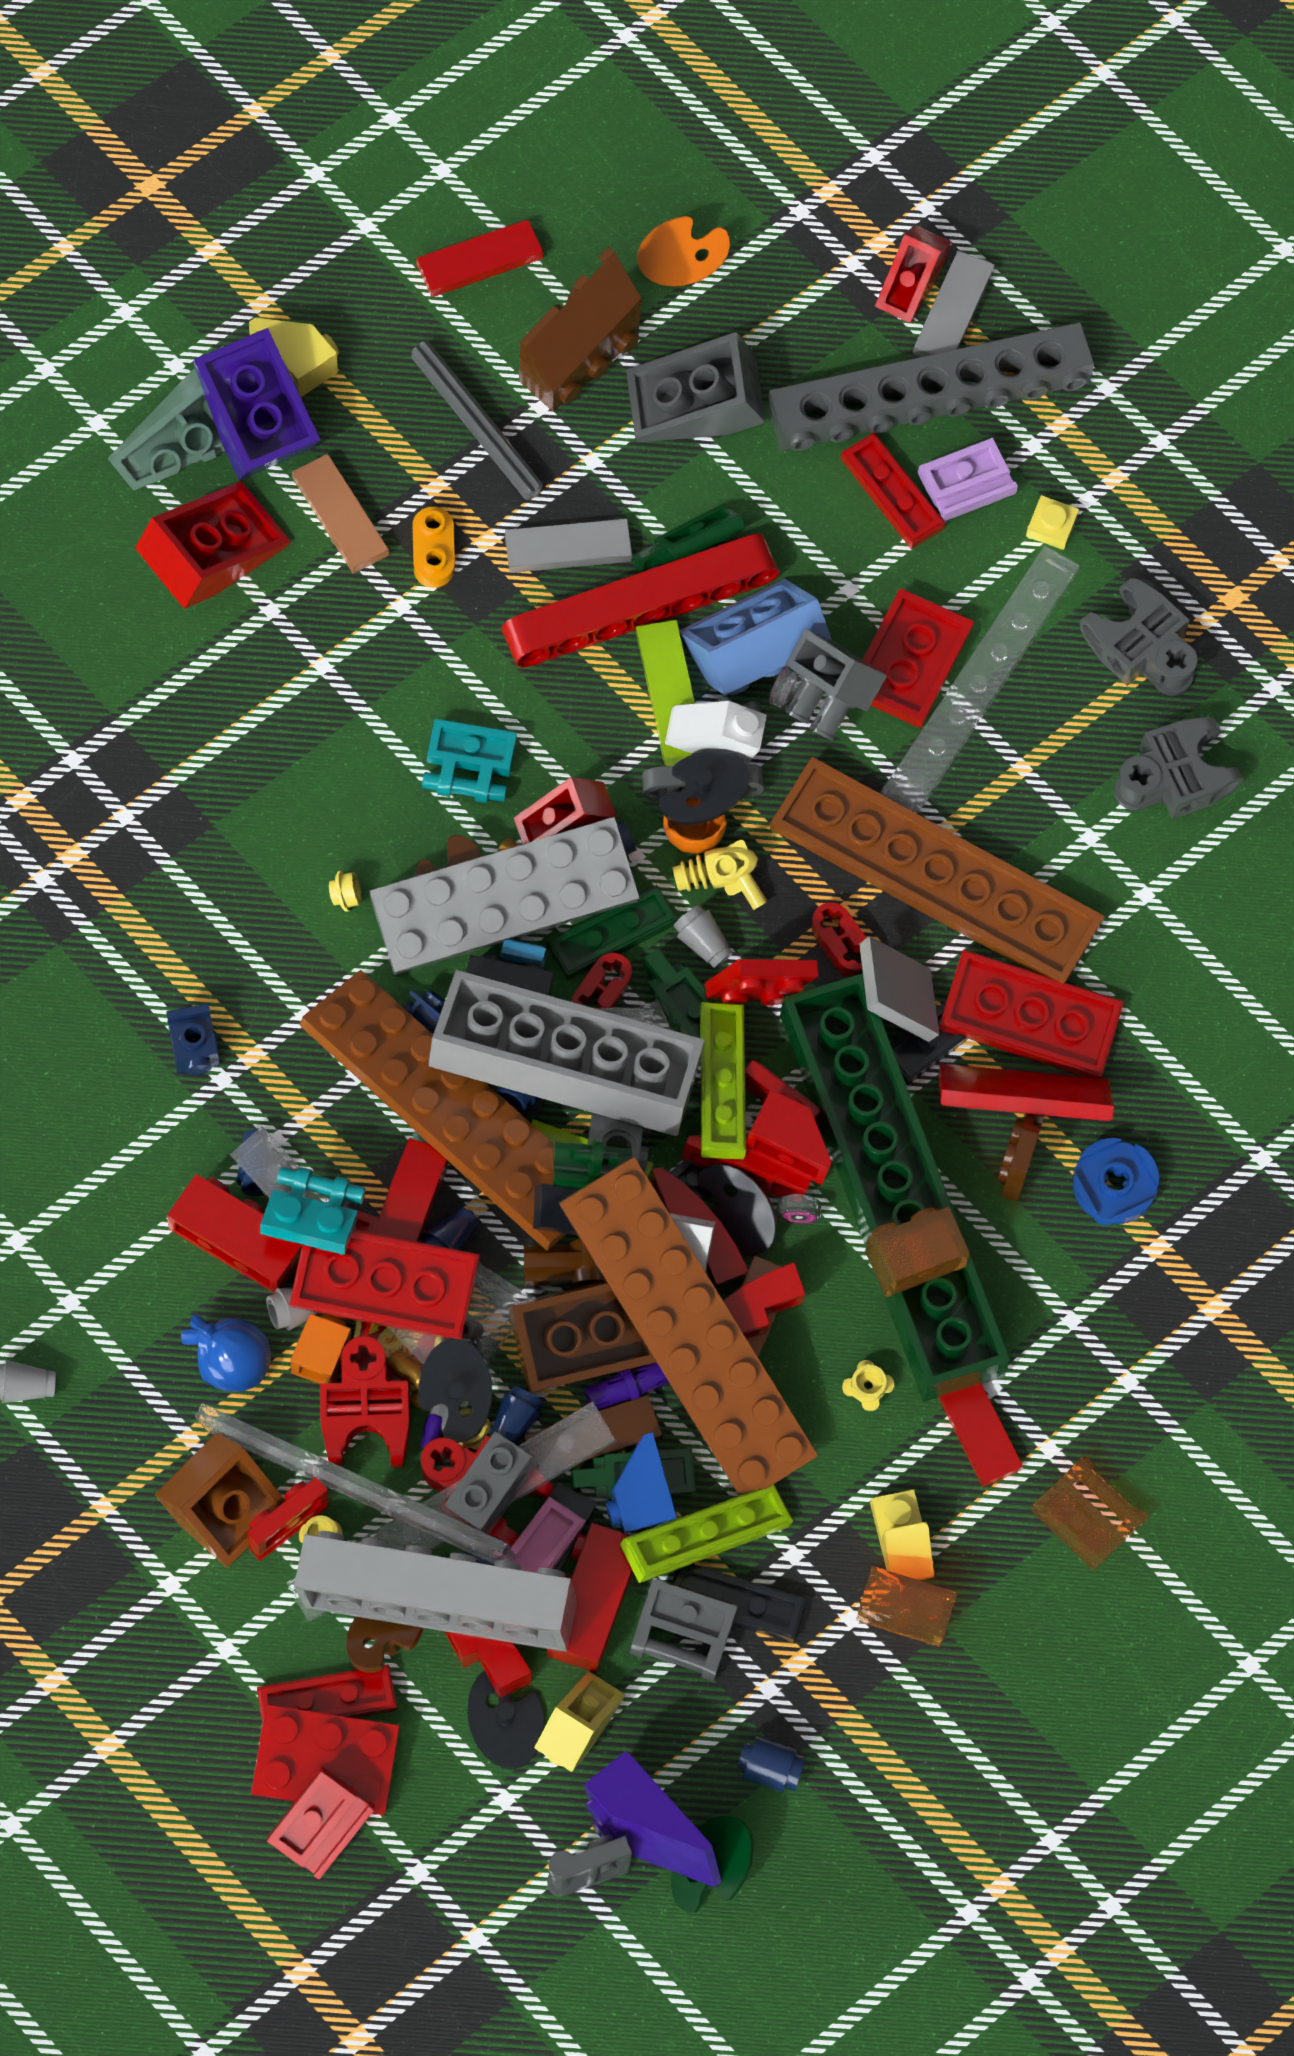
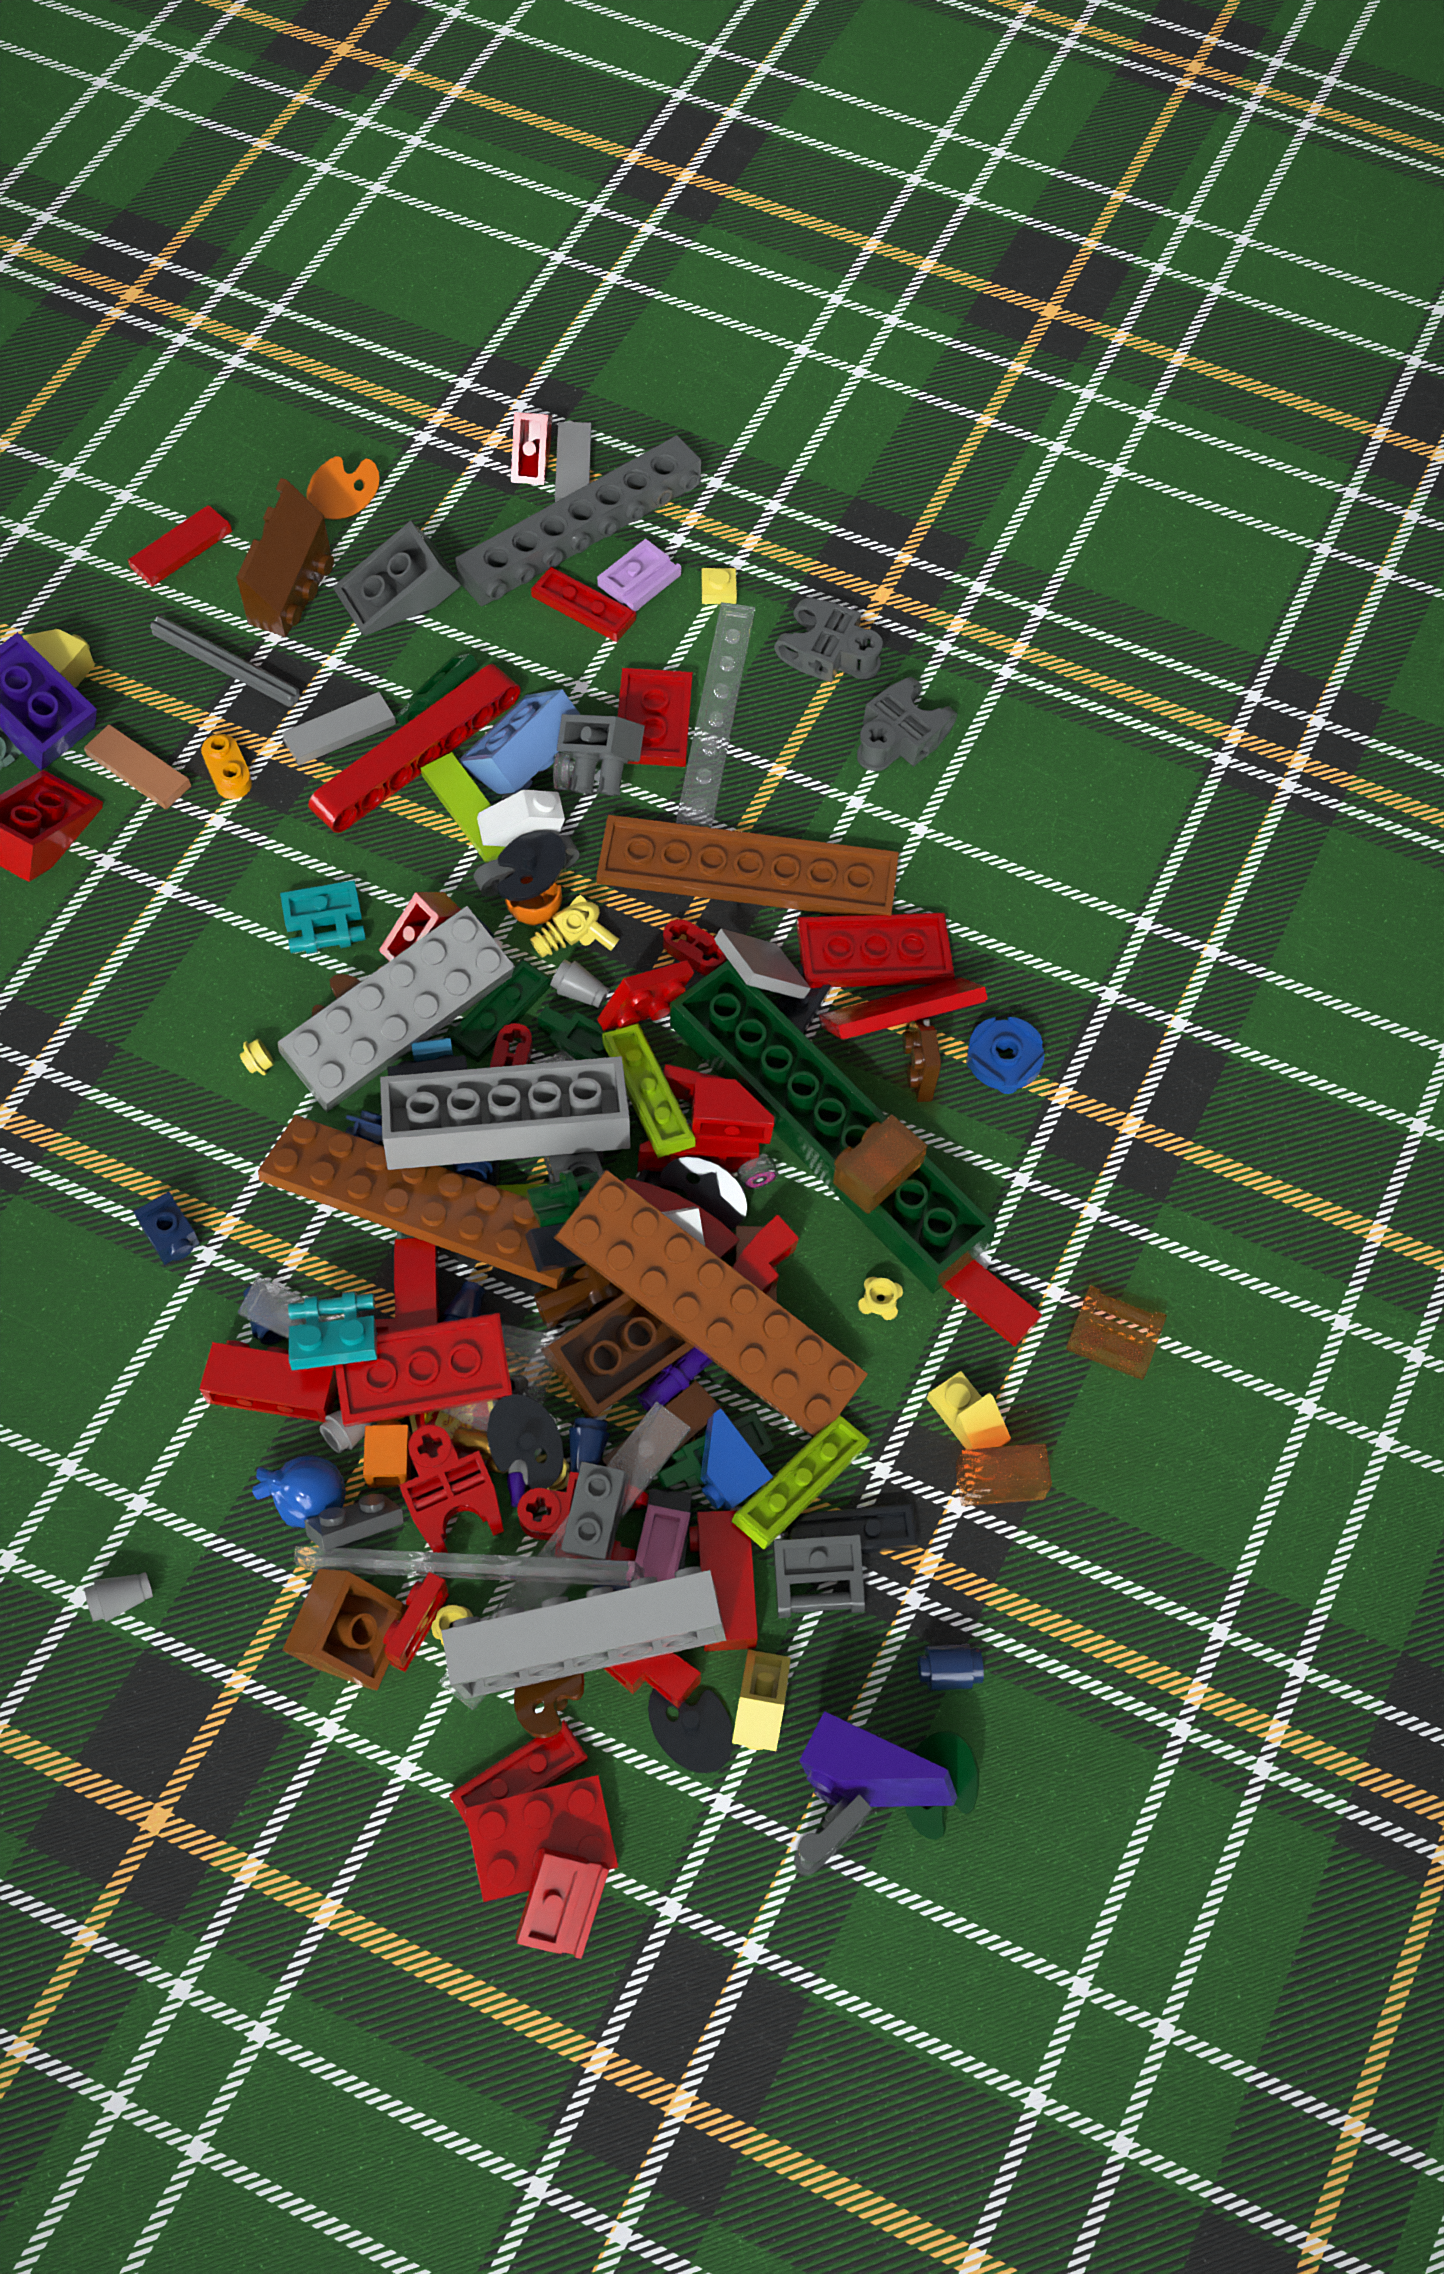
camera: 20 degrees left, 5 degrees down
(265, 1401) = (353, 1522): none -> dark grey plate

